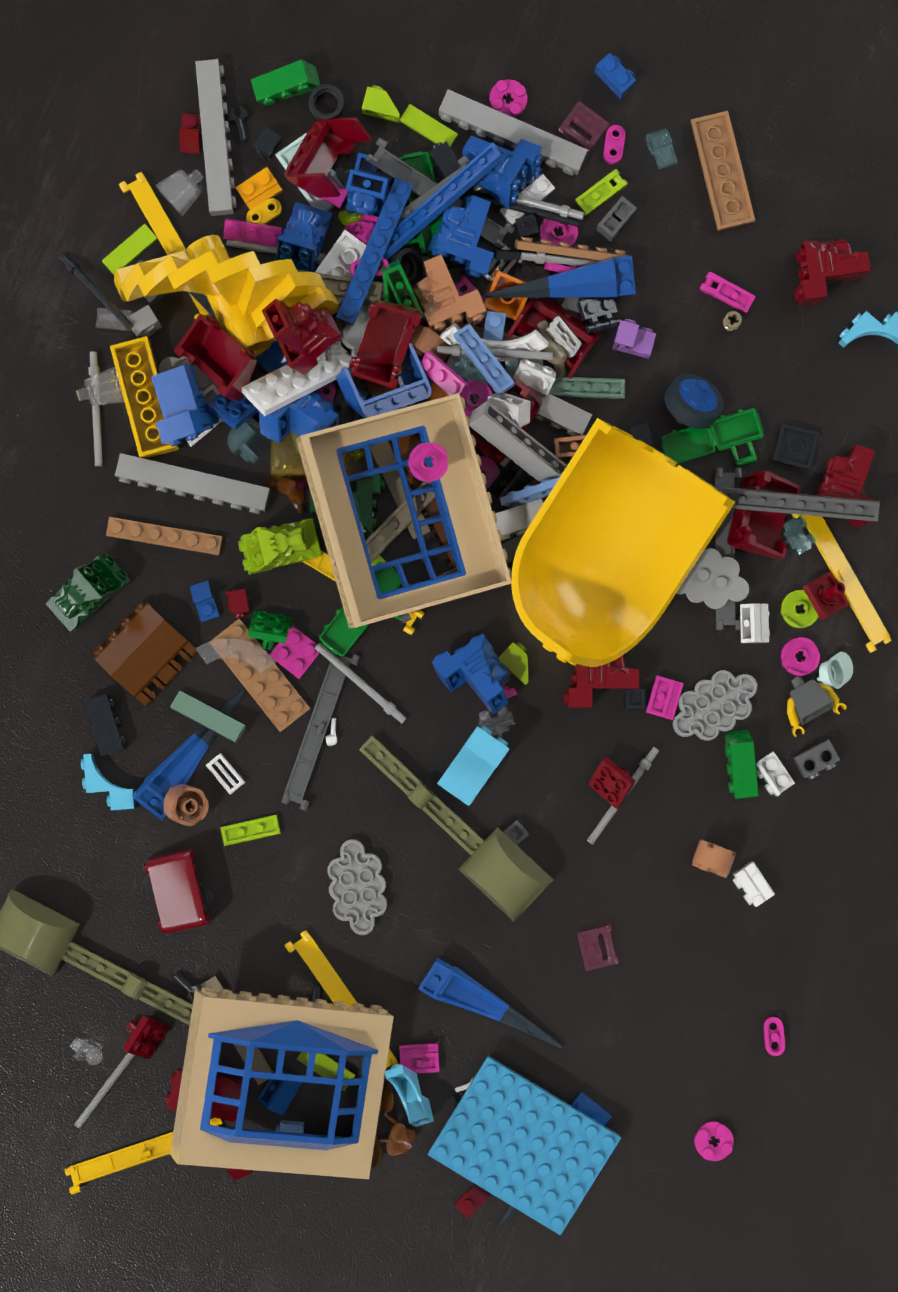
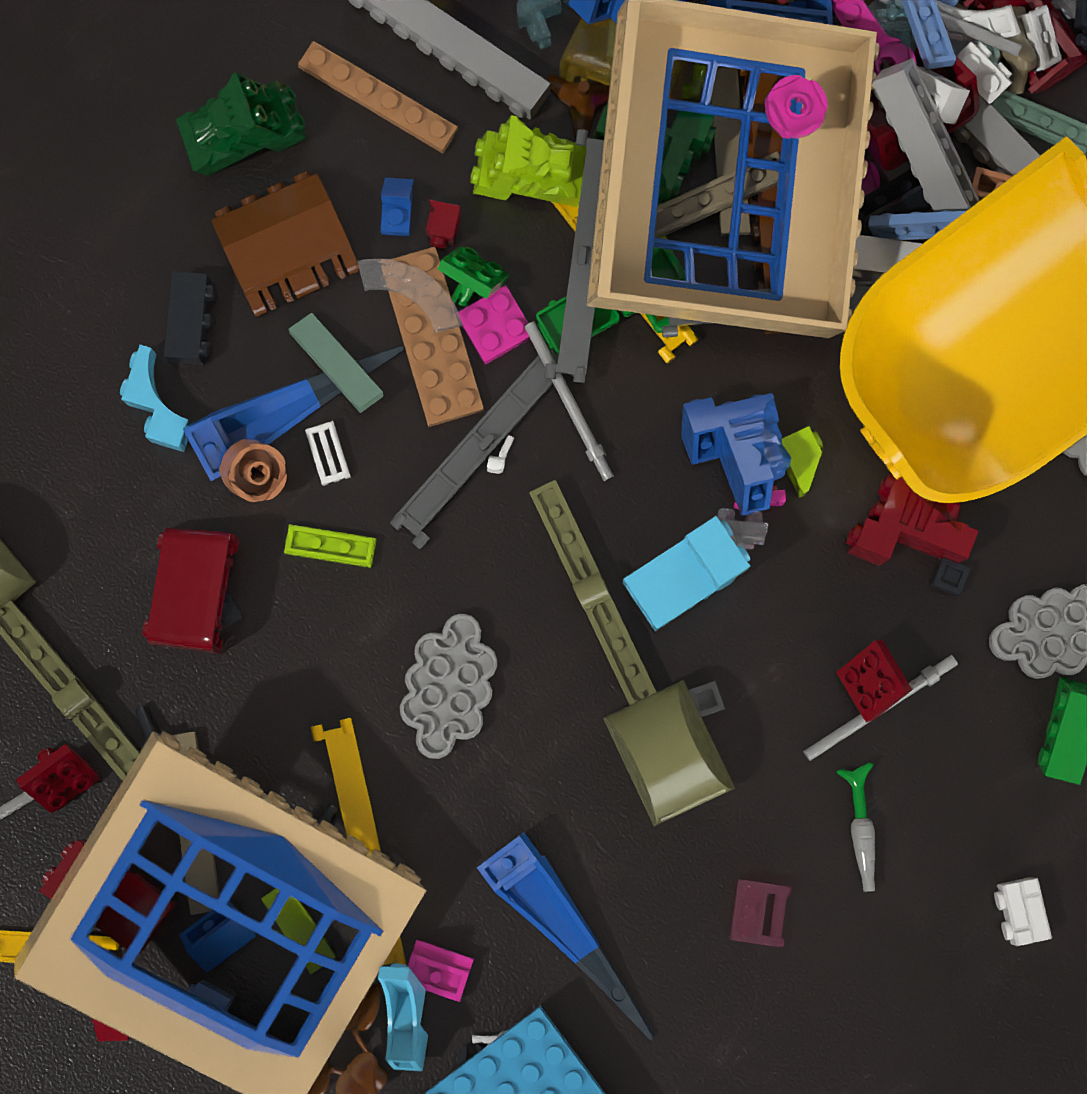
camera: 20 degrees right, 5 degrees down
(347, 636) = (578, 316): none -> dark grey piece
(638, 872) = (862, 827): none -> light grey piece
(664, 697) = (993, 591): dark pink plate -> none
(713, 858) = (982, 849): nougat brick -> none

